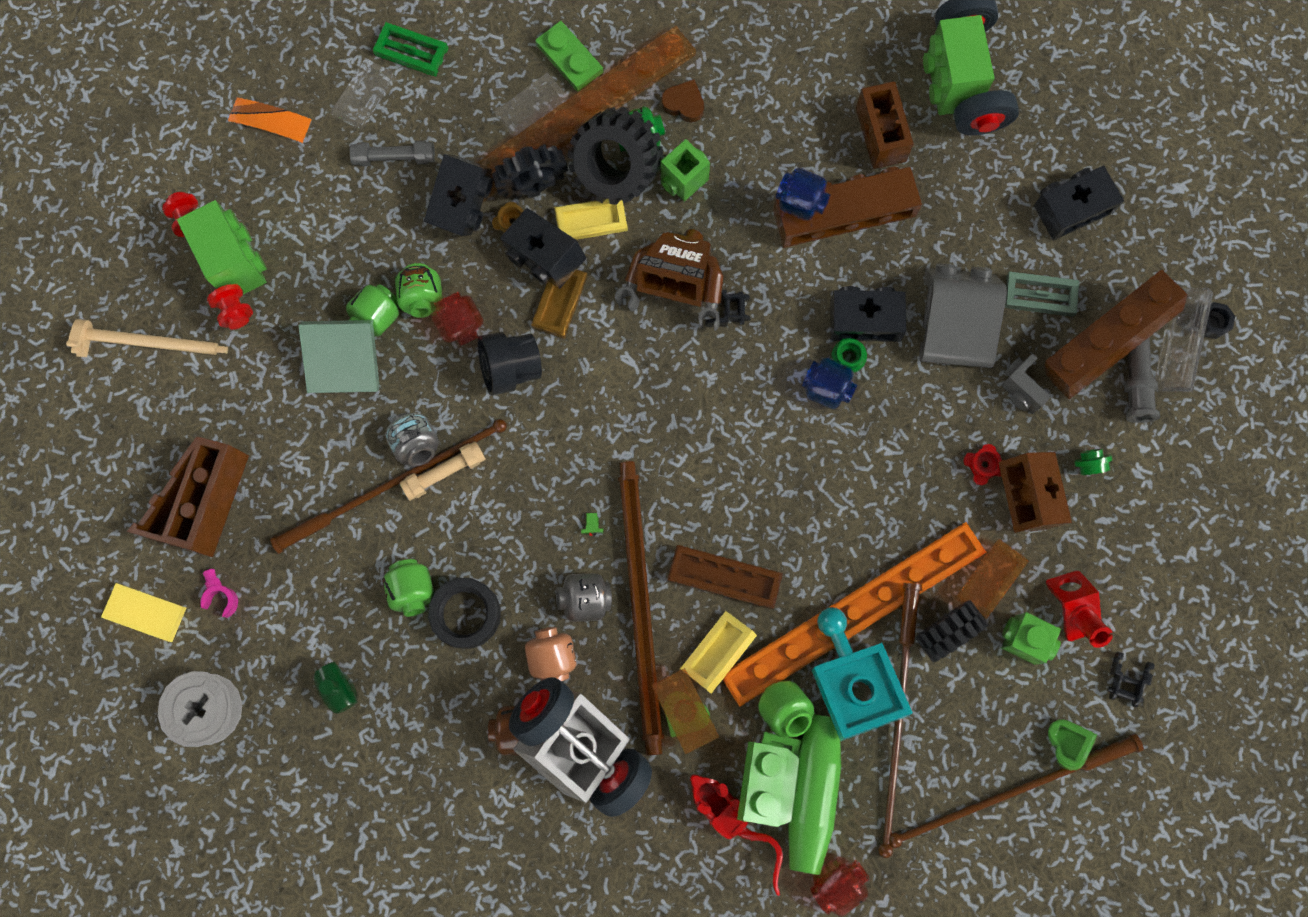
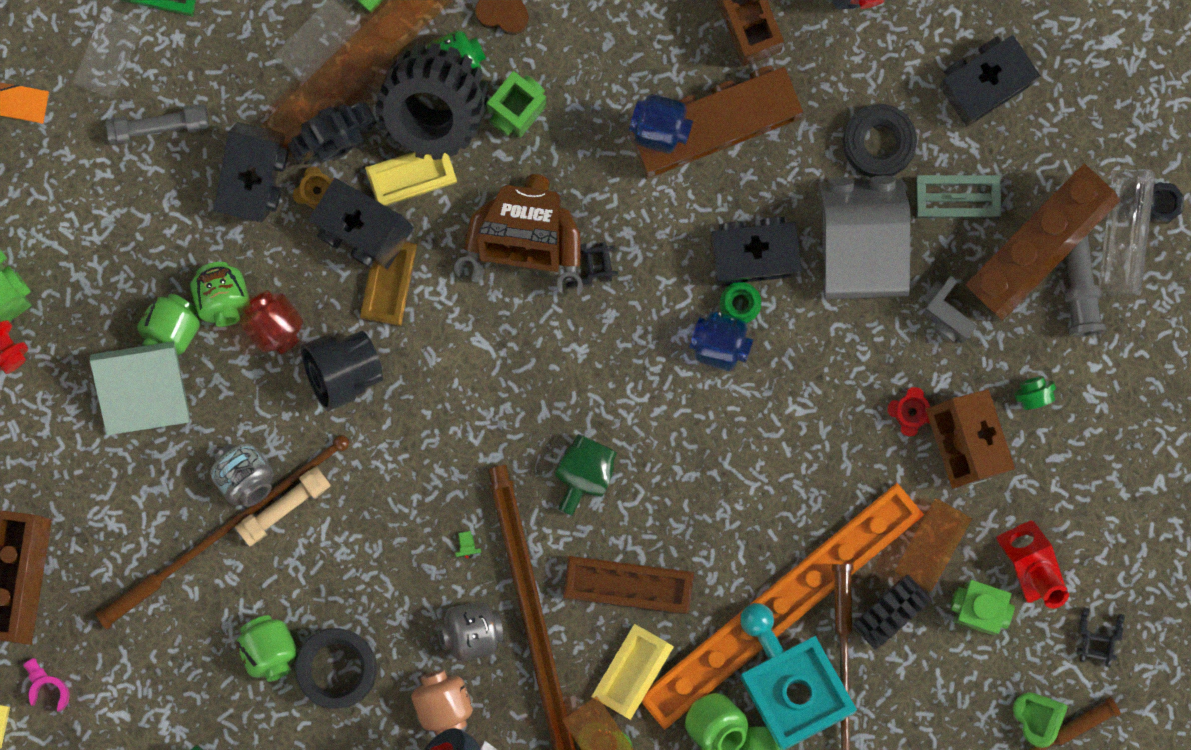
camera: 15 degrees left, 5 degrees up
(701, 474) = (584, 469): none -> dark green piece
(986, 221) = (888, 117): none -> black tyre

